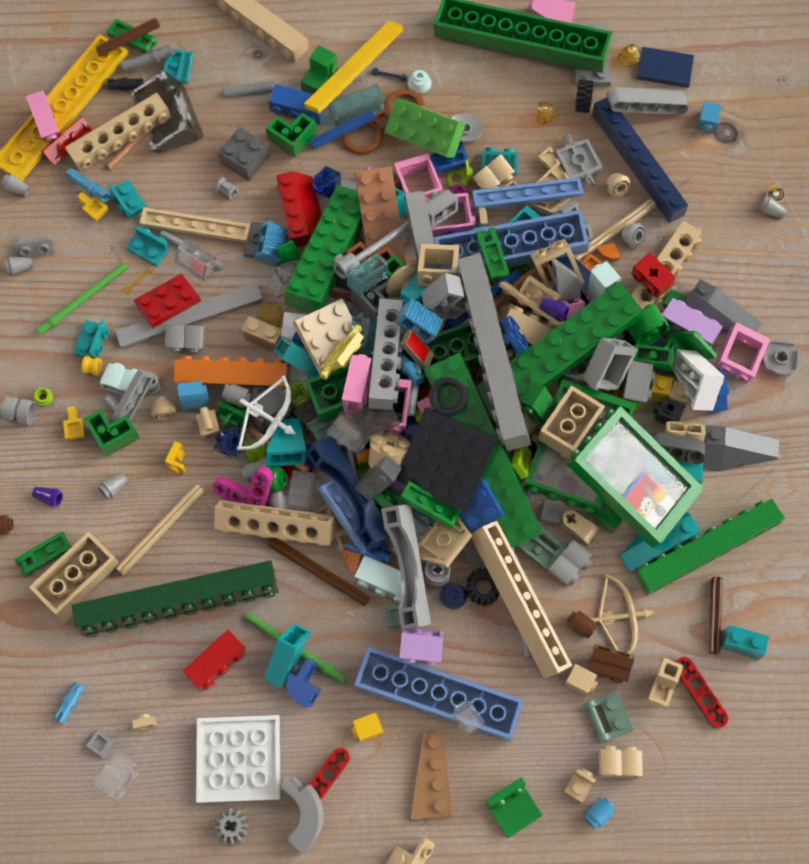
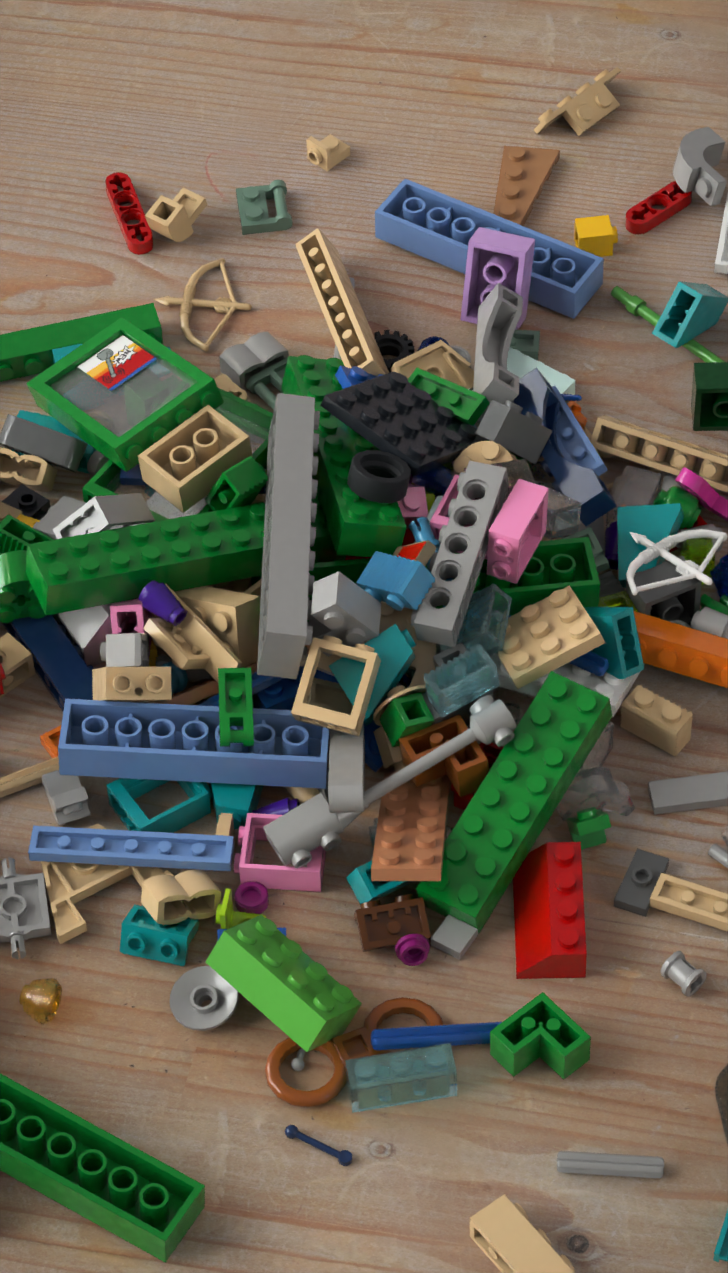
camera: 165 degrees left, 20 degrees down
(244, 153) = (639, 1025): dark grey brick -> none
(270, 237) = (616, 857): dark azure brick -> none
(271, 314) = (638, 747): clear yellow brick -> none
(291, 103) = (516, 1105): blue brick -> none
(299, 686) = (666, 279): blue brick -> none
(319, 571) = (610, 401): reddish brown axle -> none
(322, 66) = (458, 1148): green brick -> none
(326, 181) = (492, 940): clear blue brick -> none
(340, 355) = (532, 575): light yellow plate -> none
(353, 67) = (385, 1146): yellow tile -> none
(415, 165) = (330, 947): bright pink window -> none
(419, 82) = (263, 1113): light aqua cone -> none
(467, 718) = (457, 192): clear brick -> none
(513, 335) = (243, 565): blue plate -> none
(513, 808) = (423, 142): green bracket -> none
(581, 624) = (262, 296): reddish brown brick -> none
(581, 680) = (281, 240): tan brick -> none
(599, 813) = (312, 120): dark azure brick -> none
(601, 280) = (68, 632): light aqua brick -> none
(609, 251) = (21, 755): orange tile -> none
(610, 663) = (239, 247): reddish brown brick -> none
(620, 763) = (267, 158): tan brick -> none
(715, 615) = (71, 283): reddish brown axle -> none
(744, 642) = (47, 243): teal brick -> none

